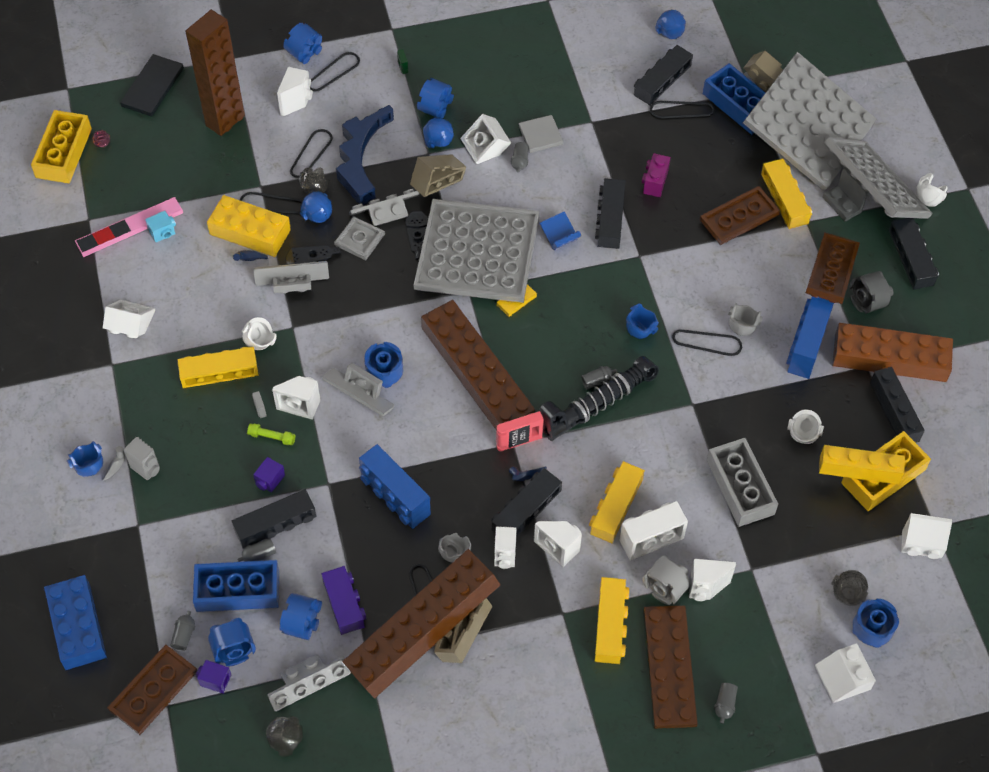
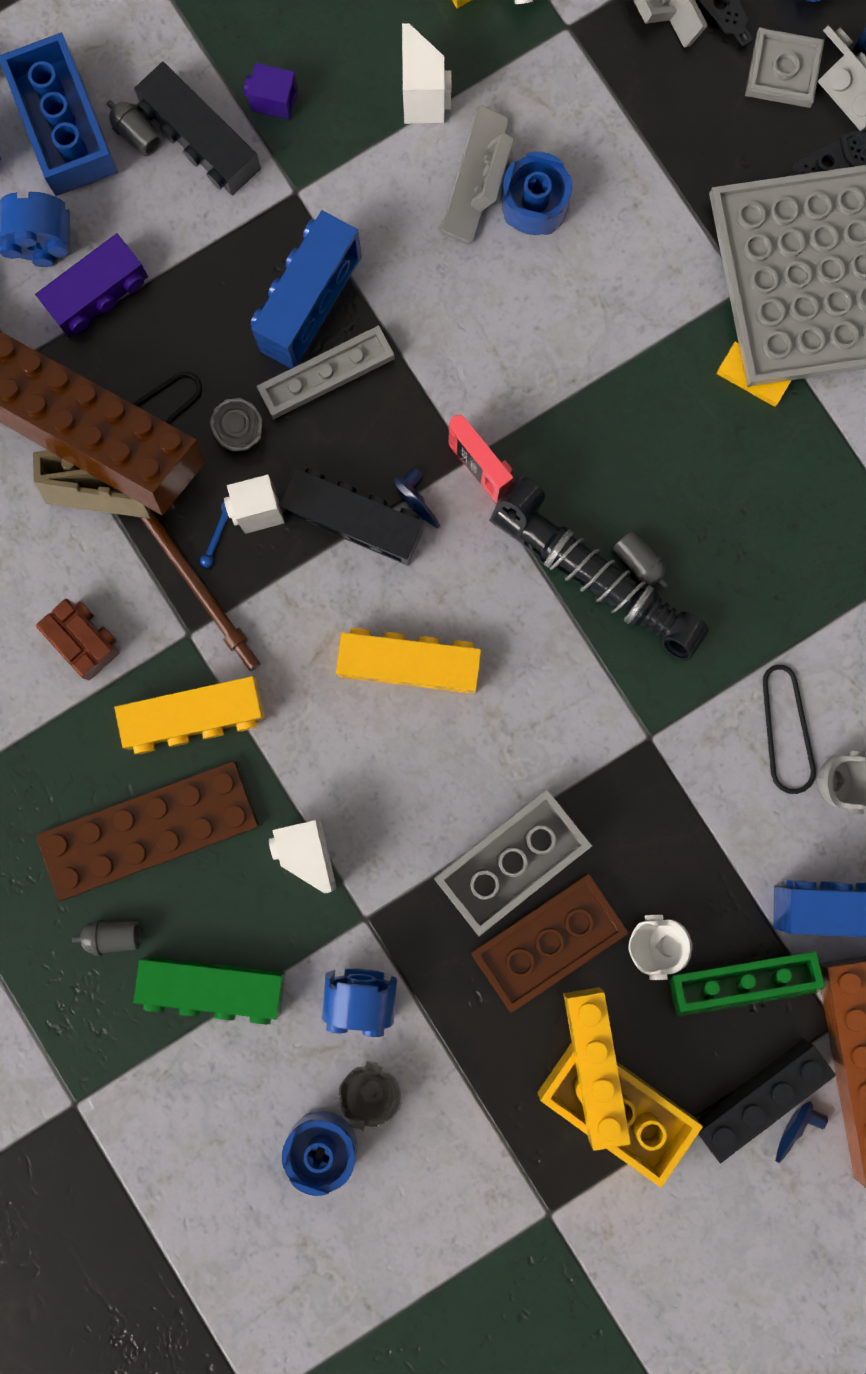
camera: 75 degrees right, 25 degrees up
(255, 430) = (350, 92): lime bar -> none
(259, 404) = (390, 26): light grey tile -> none
(440, 496) = (325, 372): none -> light grey plate
(475, 364) = (587, 349): reddish brown brick -> none
(497, 571) = (206, 560): none -> blue hinge
(547, 667) = (78, 638): none -> copper brick
(558, 539) = (294, 588): white slope -> none
(573, 587) = (234, 638): none -> reddish brown bar
(641, 322) = (777, 601): blue cap -> none
(653, 530) = (365, 734): white brick -> none
(666, 580) = (279, 785): light grey brick -> none
(769, 656) = (209, 988): none -> green brick
(789, 480) = (549, 943): none -> reddish brown plate
(797, 577) = (359, 1002): none -> blue brick
(835, 395) = (746, 984): none -> green brick
(845, 673) = (216, 1121): white slope -> none
(914, 398) = (796, 1126): none -> dark blue bar
(926, 536) = (508, 1207): white slope -> none

